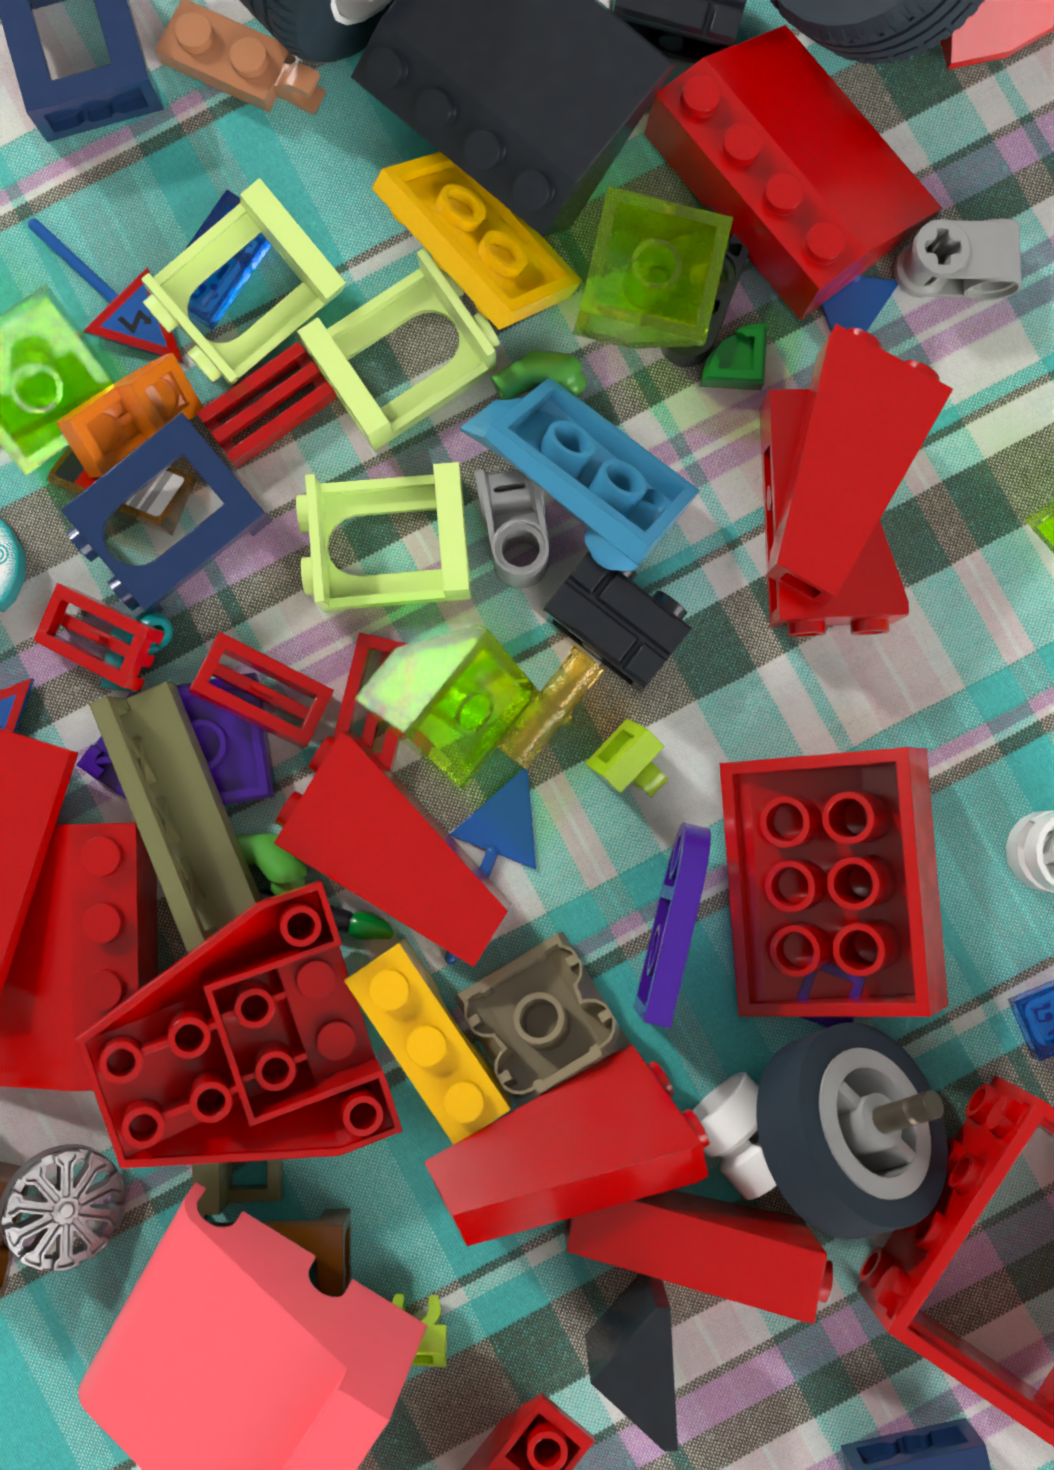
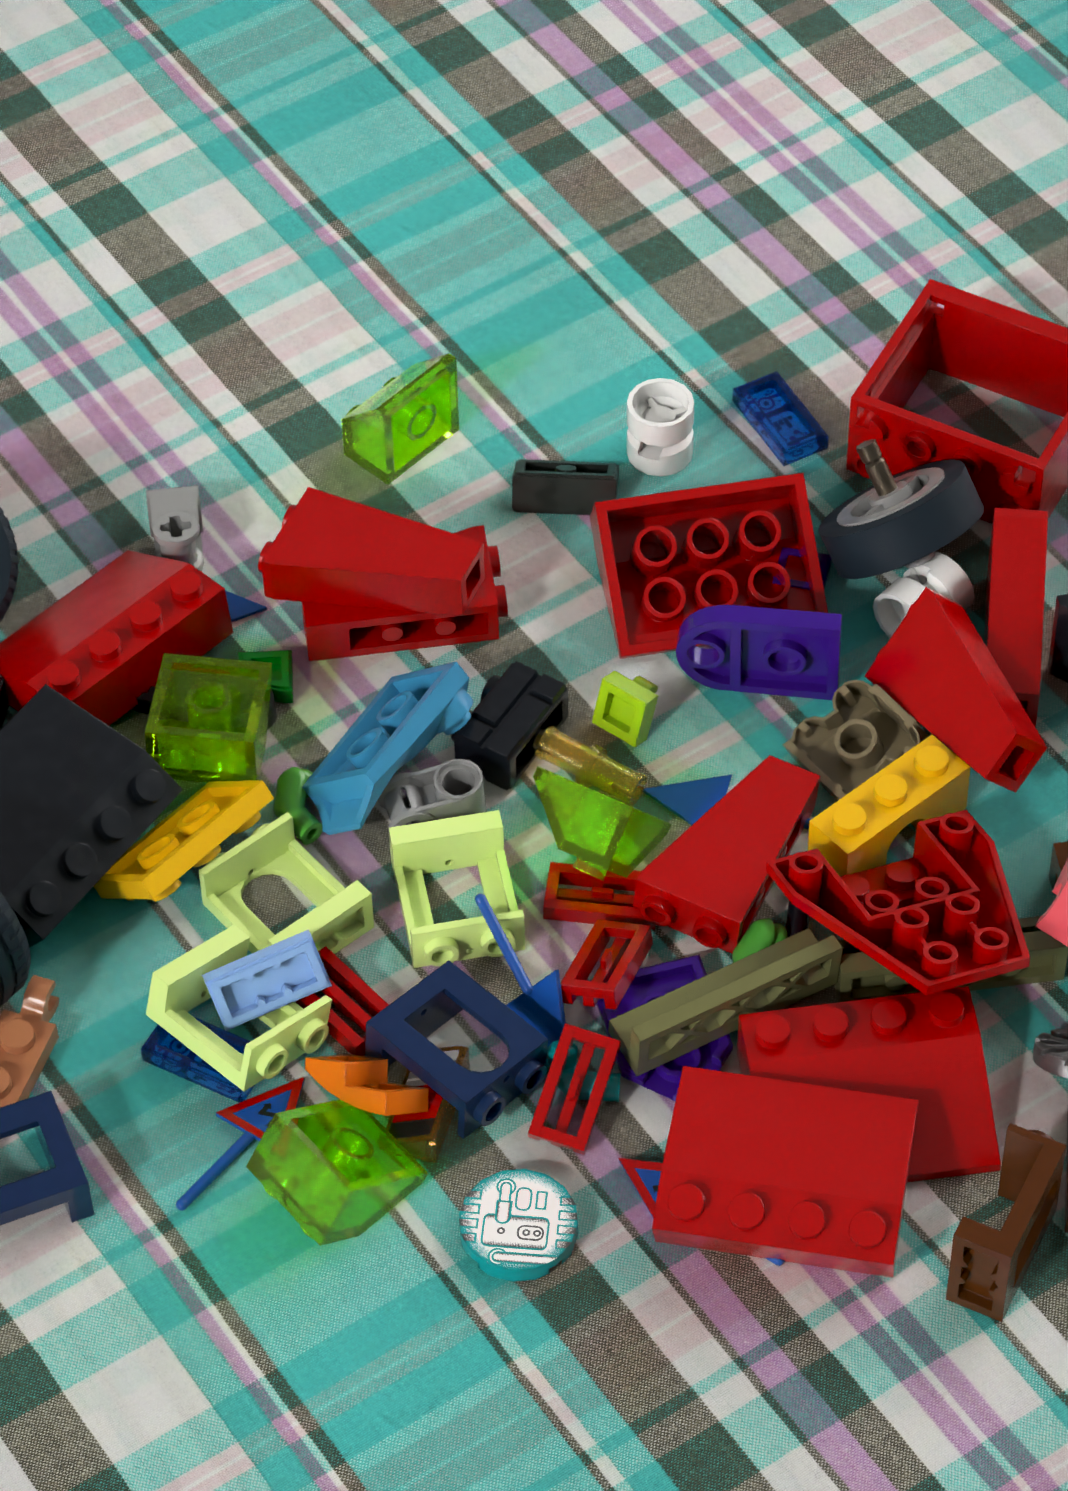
camera: 95 degrees left, 35 degrees down
(220, 613) = (538, 1004): none -> blue piece
(270, 315) = (266, 980): none -> light blue plate
(995, 728) = (562, 486): none -> pearl dark grey slope

